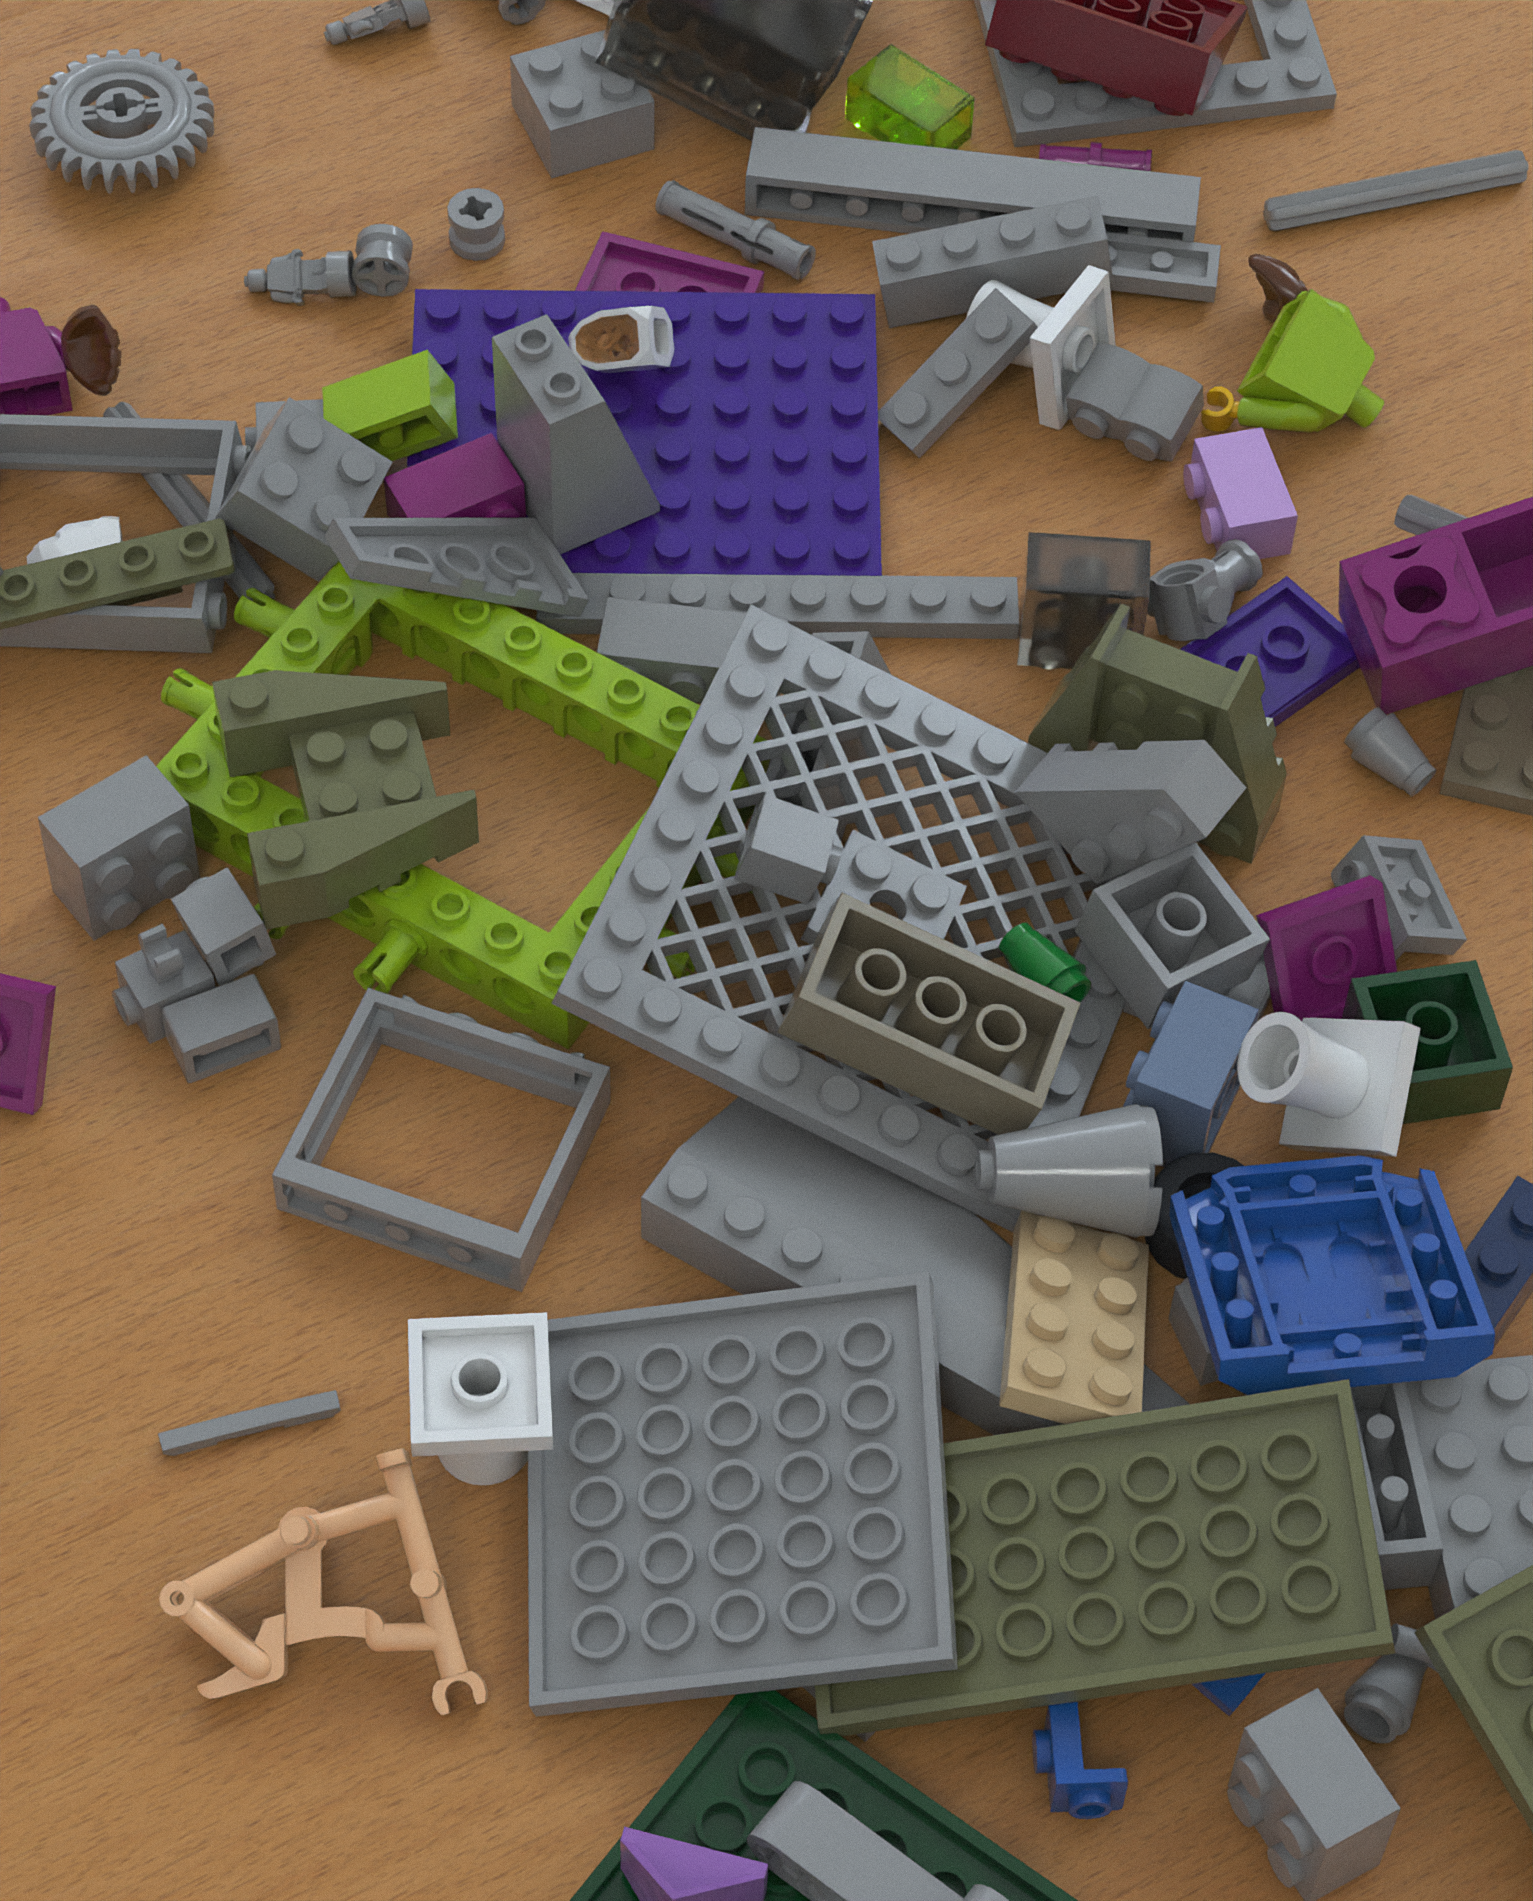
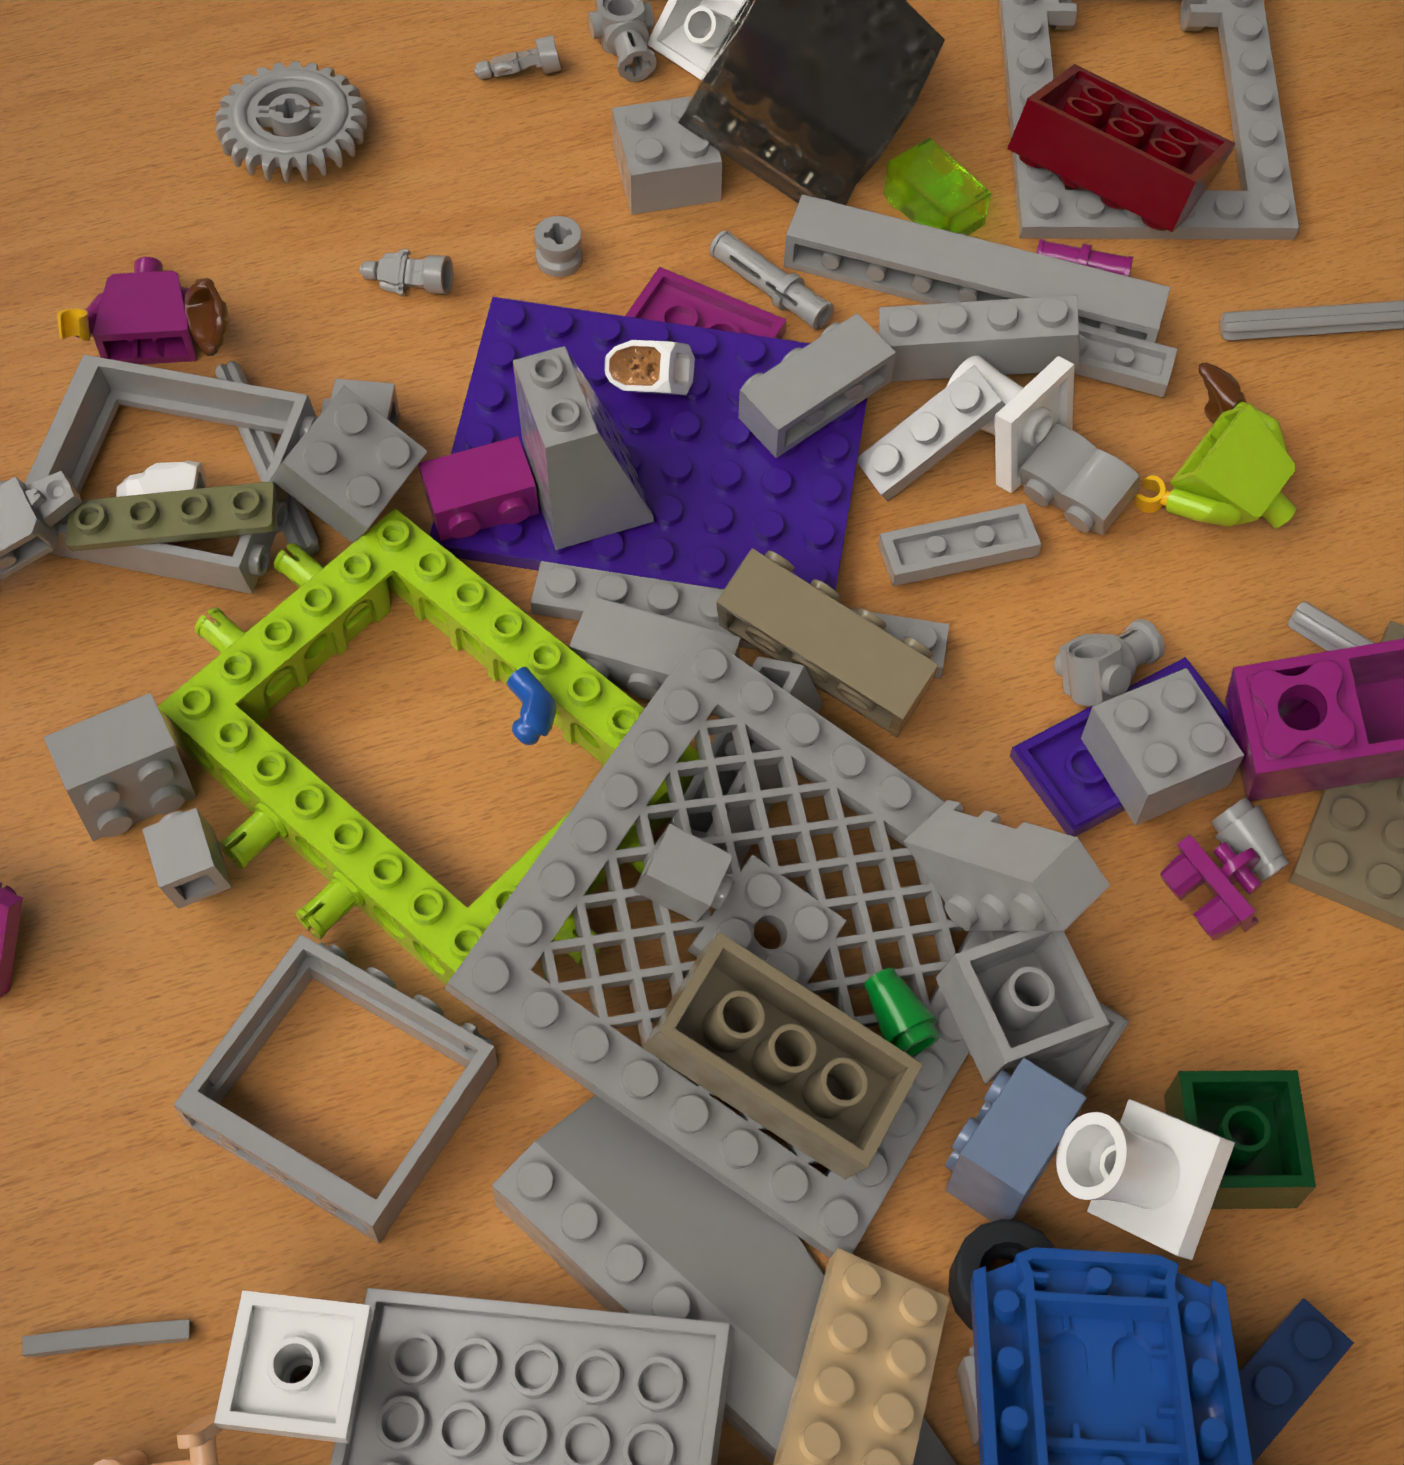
camera: 10 degrees right, 5 degrees up
(157, 977) = (130, 901): light grey brick -> none
(221, 1028) = (172, 947): light grey piece -> none
(357, 779) = (327, 748): olive wedge -> none
(382, 260) = (473, 267): light grey wheel -> none
(395, 406) = (445, 401): lime brick -> none
(460, 557) = (469, 546): light grey wing -> none
(580, 711) = (537, 707): none -> blue arm
(817, 334) = (815, 384): none -> light grey brick
(913, 609) = (840, 648): none -> dark tan brick
(1011, 491) = (959, 544): none -> light grey plate
(1072, 592) = (1001, 661): clear smoke brick -> none
(1080, 1170) = (895, 1225): light grey cone -> none
(1145, 691) = (1057, 786): olive wedge -> none
(1241, 492) = (1157, 576): lavender brick -> none
(1302, 655) = (1161, 746): none -> light grey brick
(1324, 945) = (1159, 1033): magenta tile -> none
(1339, 788) = (1228, 907): none -> magenta hips
(1414, 896) = (1233, 986): light grey bracket -> none

